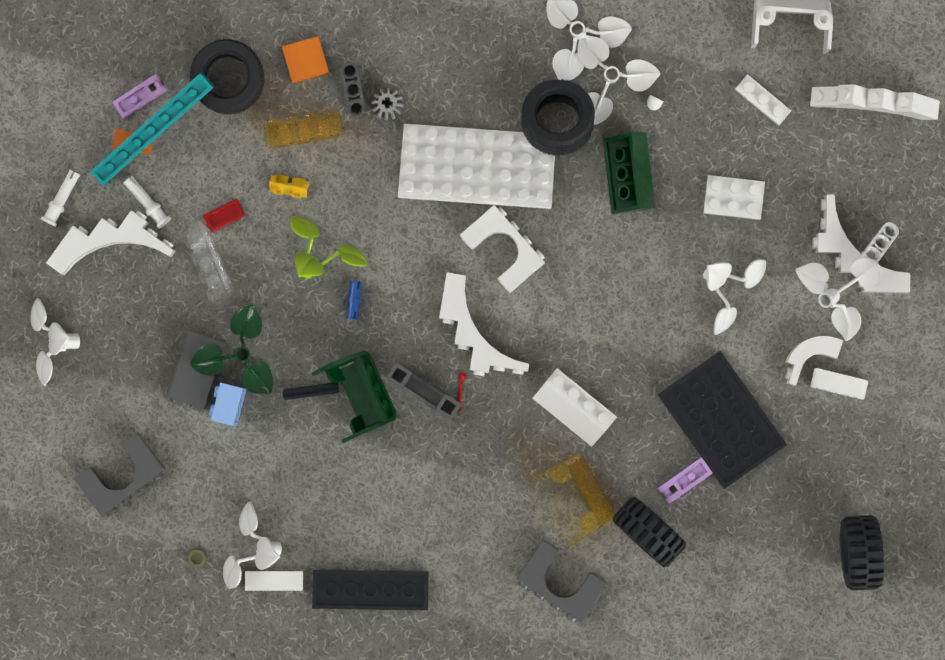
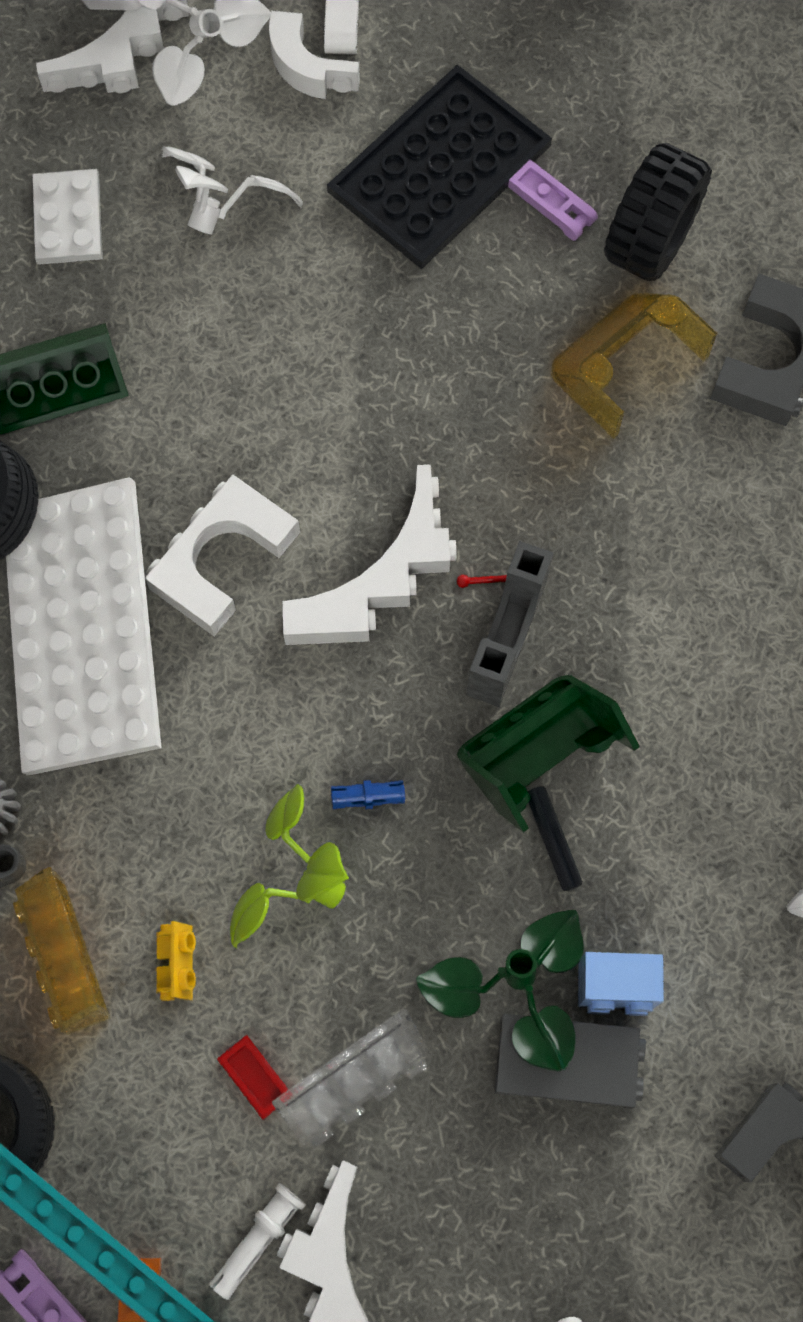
camera: 100 degrees left, 15 degrees down
(574, 407) = (473, 385): white slope -> none

